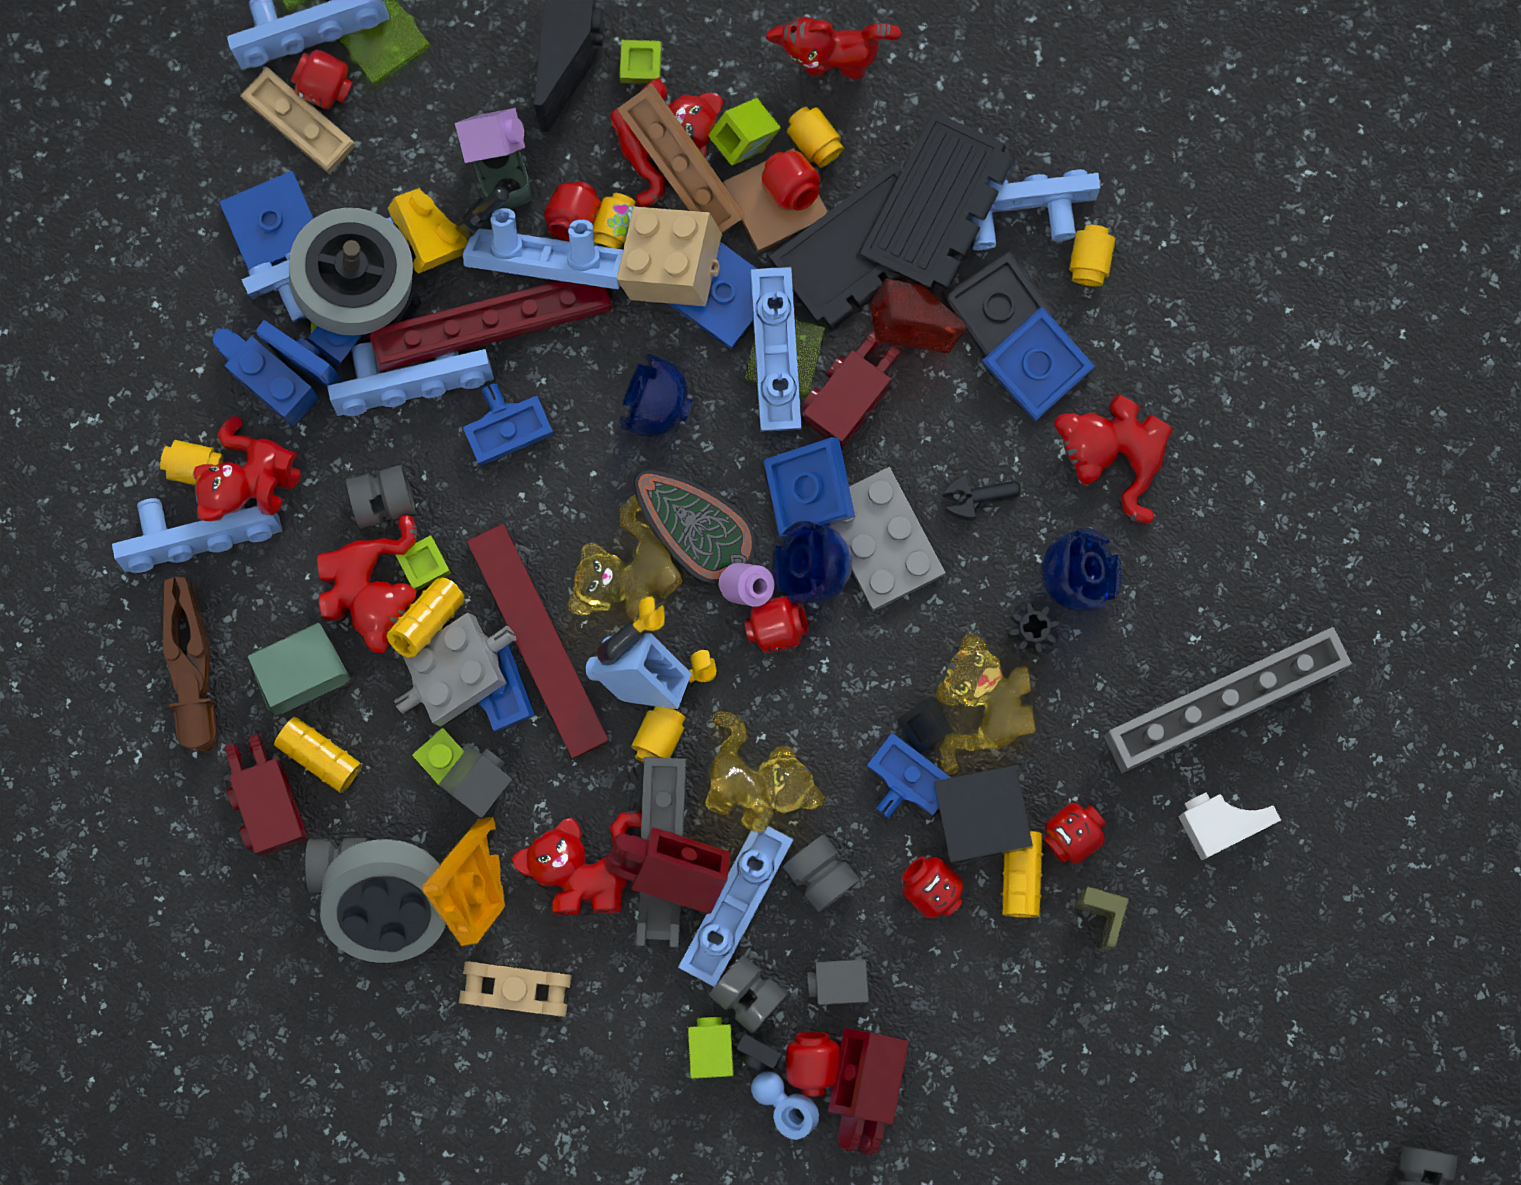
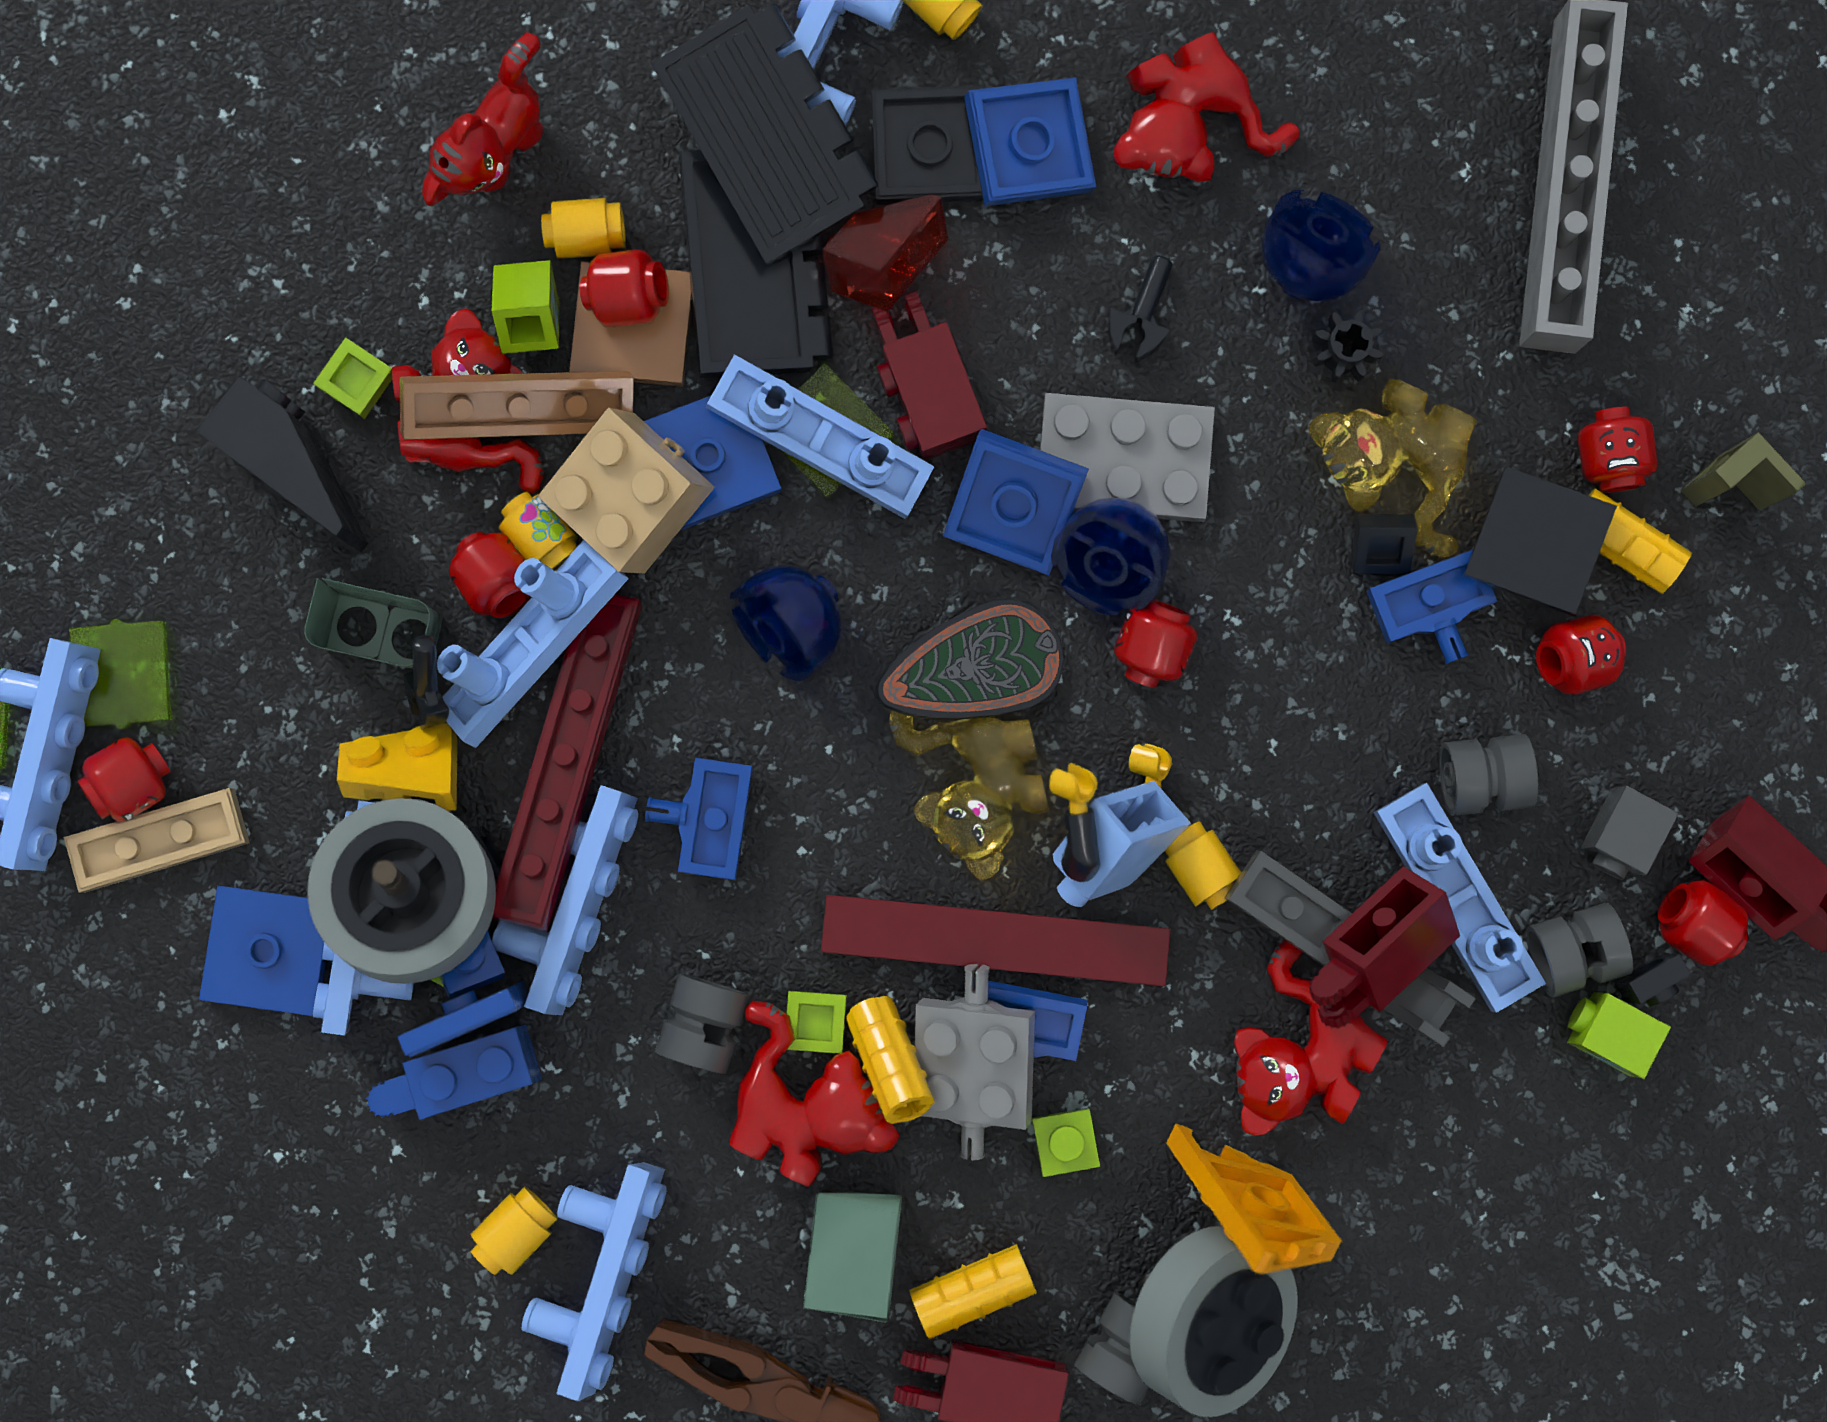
camera: 60 degrees left, 5 degrees up
(228, 486) = (577, 1208): red animal -> none
(476, 780) = (1126, 1118): dark grey brick -> none
(490, 135) = (340, 612): lavender brick -> none
(515, 989) = (1400, 1222): tan plate -> none
(746, 584) = (1087, 649): lavender brick -> none
(769, 1090) = (1703, 993): light blue plate -> none
(778, 785) = (1349, 758): clear yellow animal -> none
(1217, 825) = (1712, 282): white arch -> none

